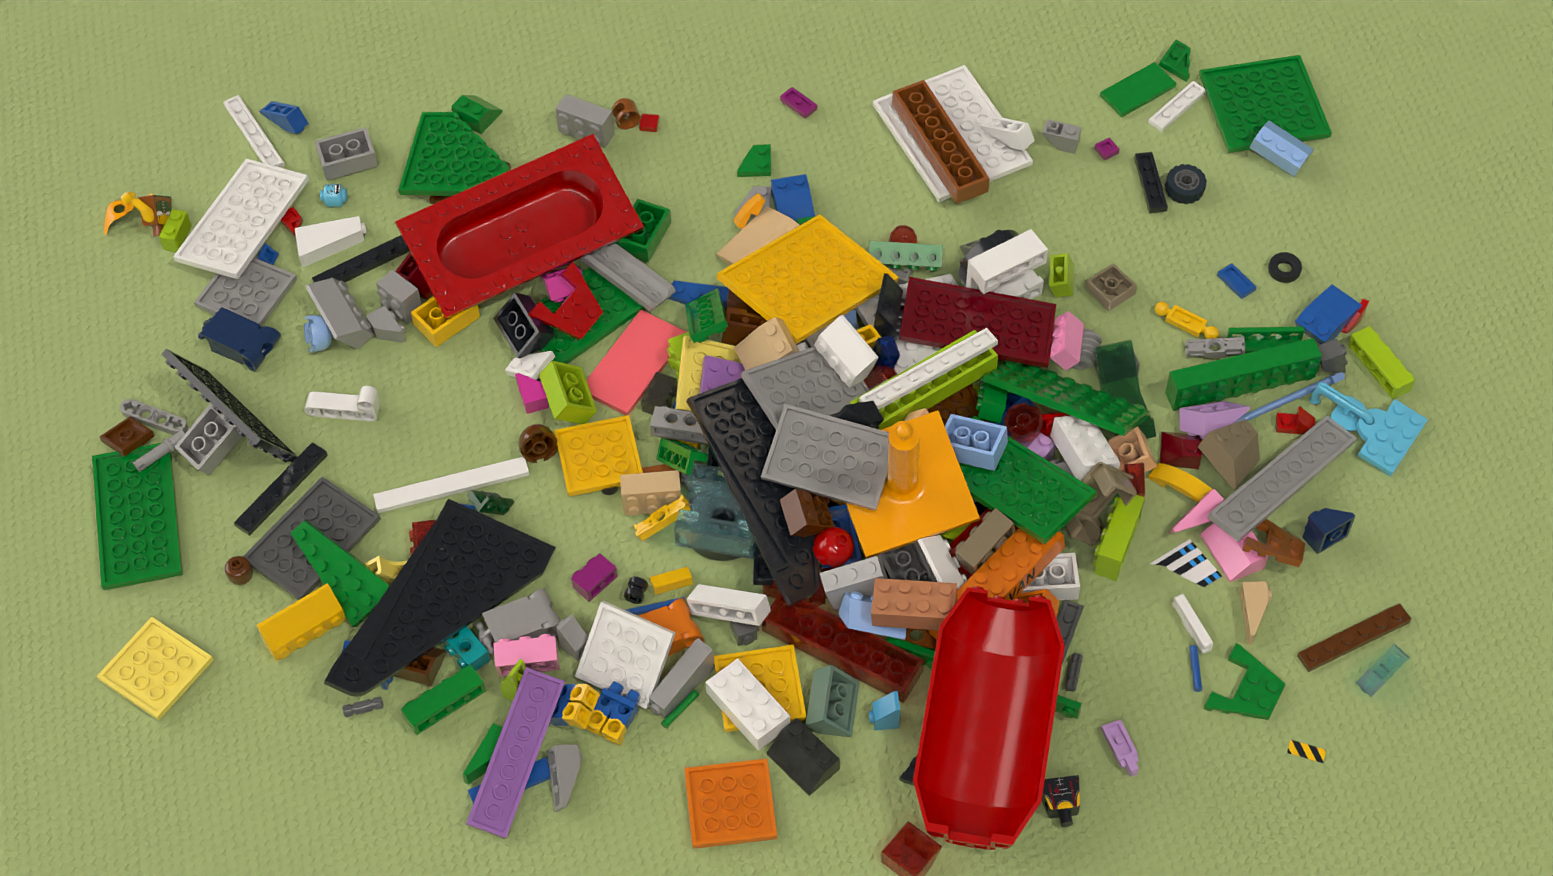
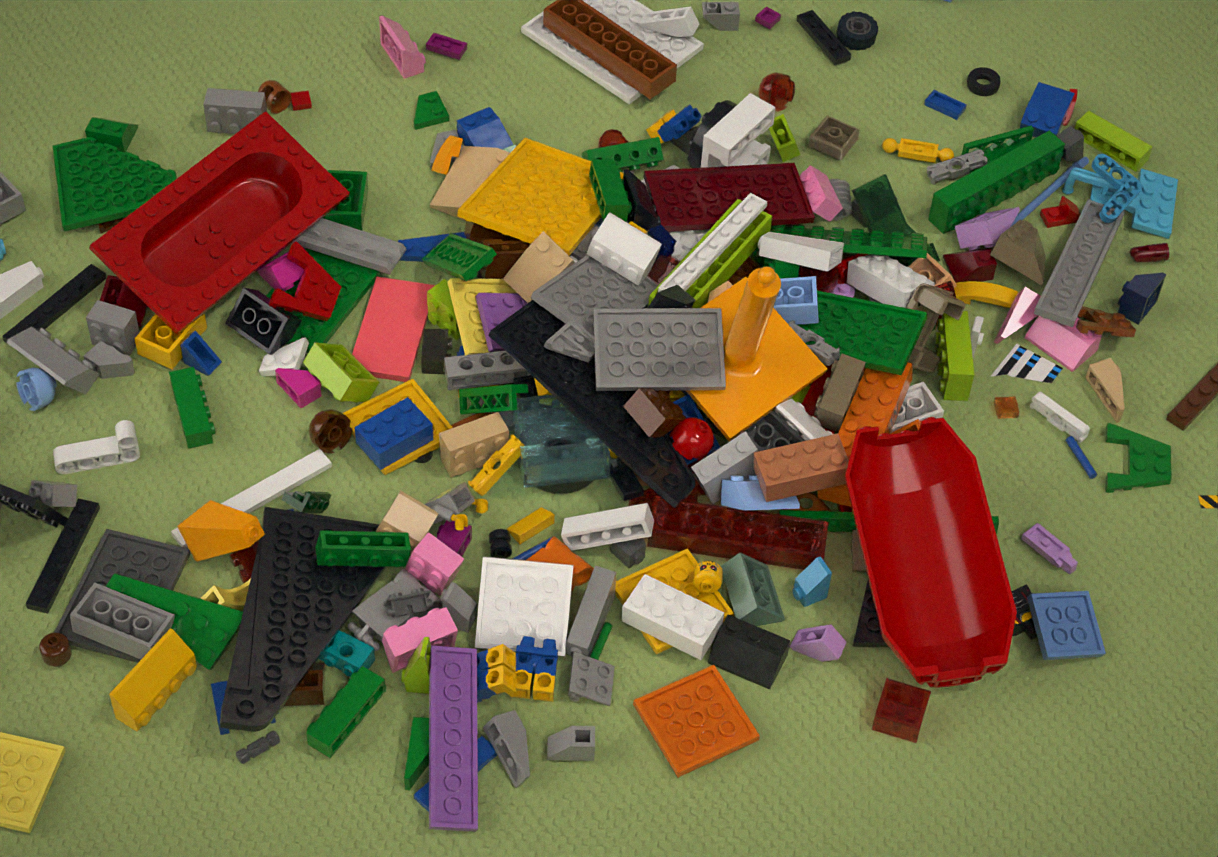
camera: 25 degrees left, 5 degrees down
(292, 432) = (54, 493): none -> light grey slope
(293, 562) = (120, 621): none -> light grey slope
(402, 507) = (219, 530): none -> light orange slope
(435, 387) = (191, 407): none -> green brick
(461, 340) = (198, 354): none -> blue slope
(512, 561) = (363, 548): none -> green brick
(521, 619) = (417, 600): none -> dark grey hinge
(560, 548) = (409, 517): none -> tan slope
(567, 592) = (434, 564): none -> bright pink brick
(587, 462) = (394, 433): none -> blue brick
(608, 540) = (453, 502): none -> light grey torso
(615, 790) = (572, 744): none -> light grey slope
(658, 737) = (590, 679): none -> light grey hinge
(756, 94) = (400, 48): none -> bright pink slope
(758, 427) = (572, 342): none -> light grey wing
(795, 677) = (708, 577): none -> yellow head
(865, 289) = (609, 189): none -> green brick
(869, 769) = (819, 643): none -> lavender slope
(963, 235) = (674, 125): none -> blue hips
(982, 497) = (822, 350): none -> light grey piece
(1012, 396) = (801, 250): none -> white slope
(1077, 226) = (777, 90): none -> clear red cylinder
(1096, 825) = (1066, 625): none -> medium blue plate
(1146, 523) = (976, 336): none -> white plate
(1148, 598) = (1006, 407): none -> clear orange plate
(1360, 412) = (1122, 185): none -> dark azure beam
(1361, 486) = (1150, 253): none -> dark red hinge

